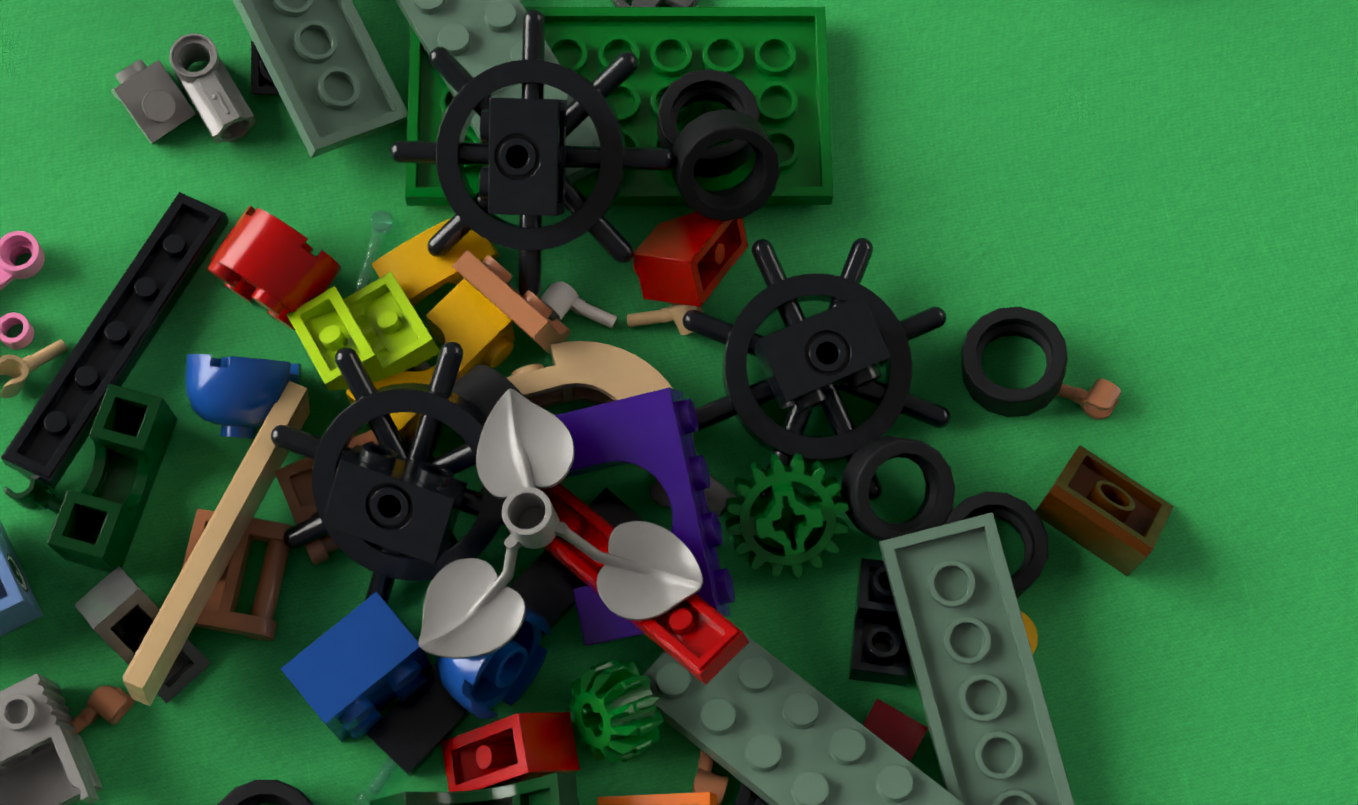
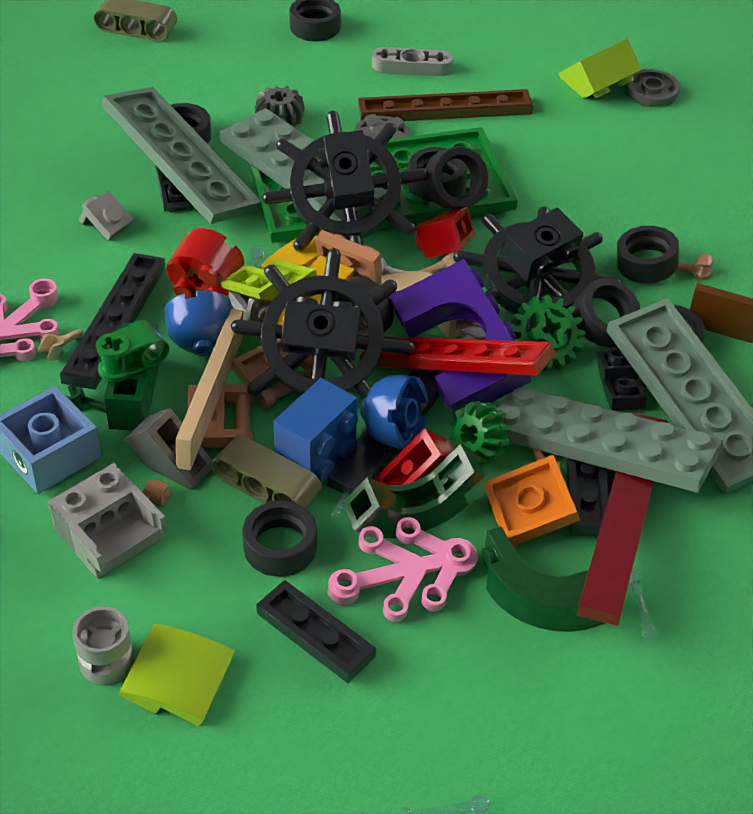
camera: 10 degrees left, 25 degrees down
(104, 465) = (132, 348): none -> green piece
(211, 89) = (141, 205): light grey piece -> none
(274, 714) = (265, 473): none -> olive beam
(525, 449) = (385, 292): light grey plant -> none

